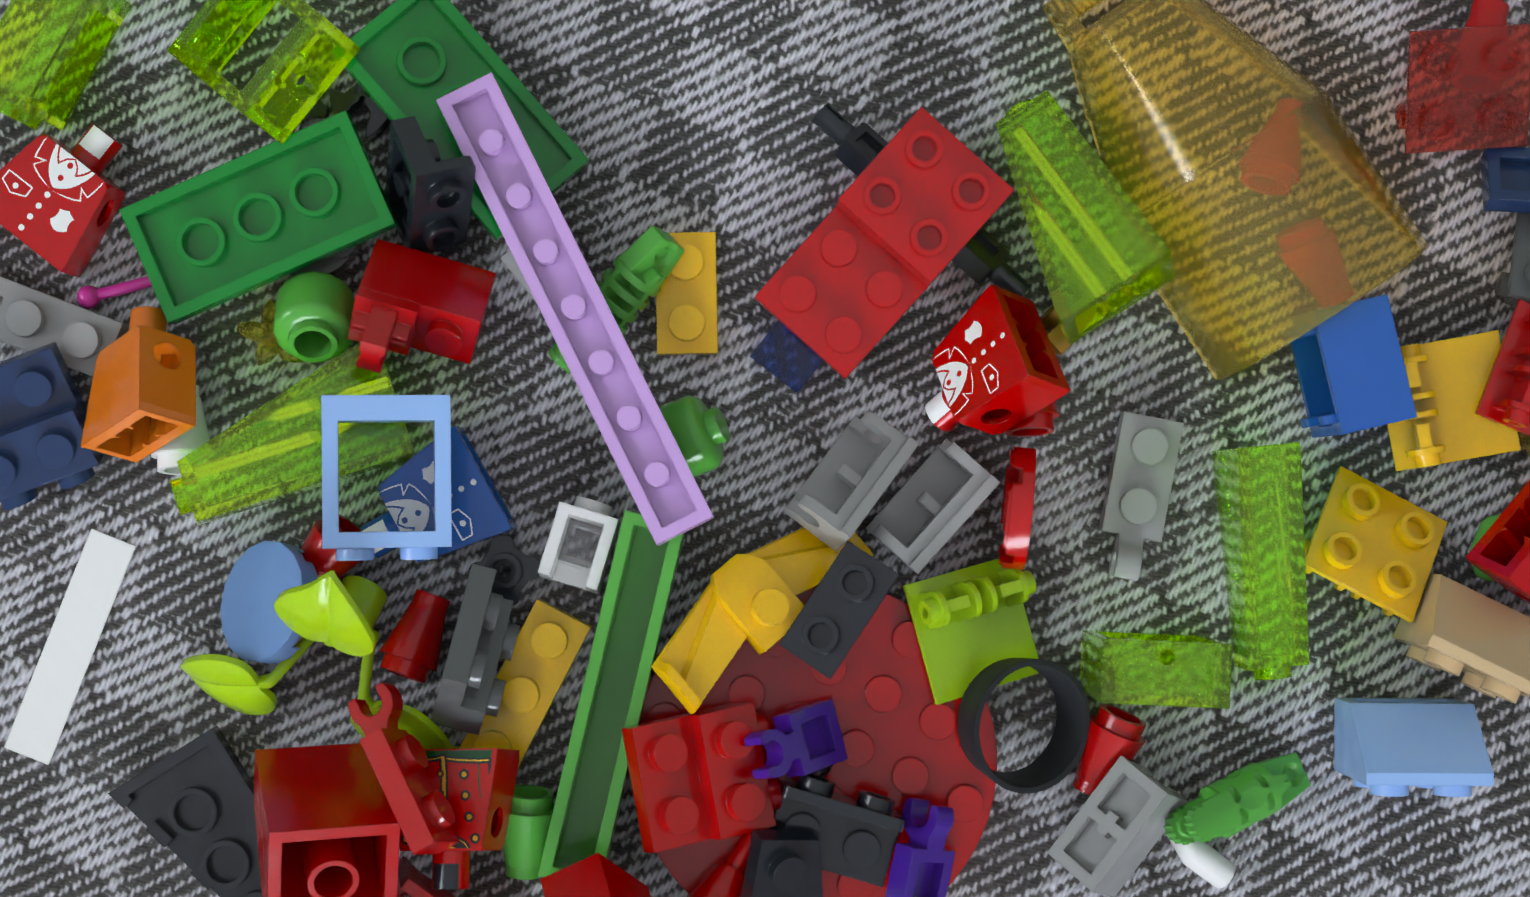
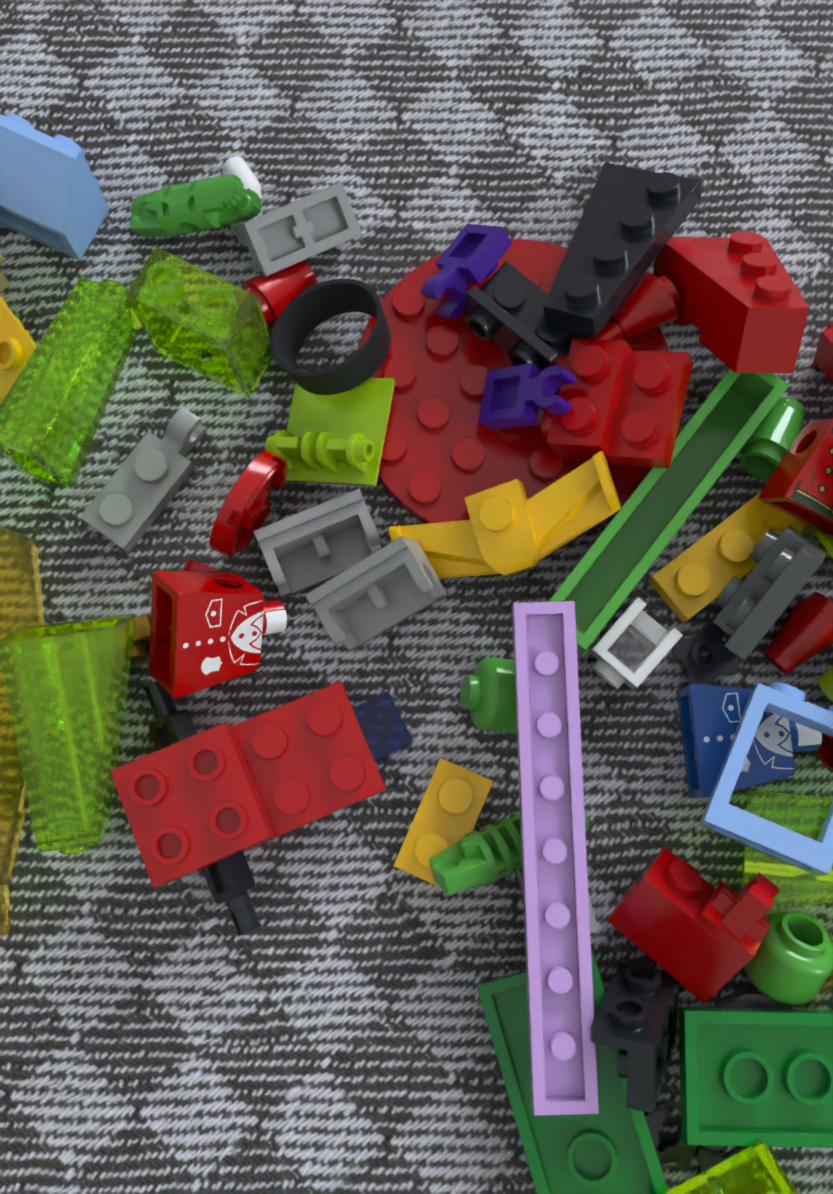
camera: 160 degrees left, 10 degrees down
(839, 609) = (438, 485): black hinge -> none

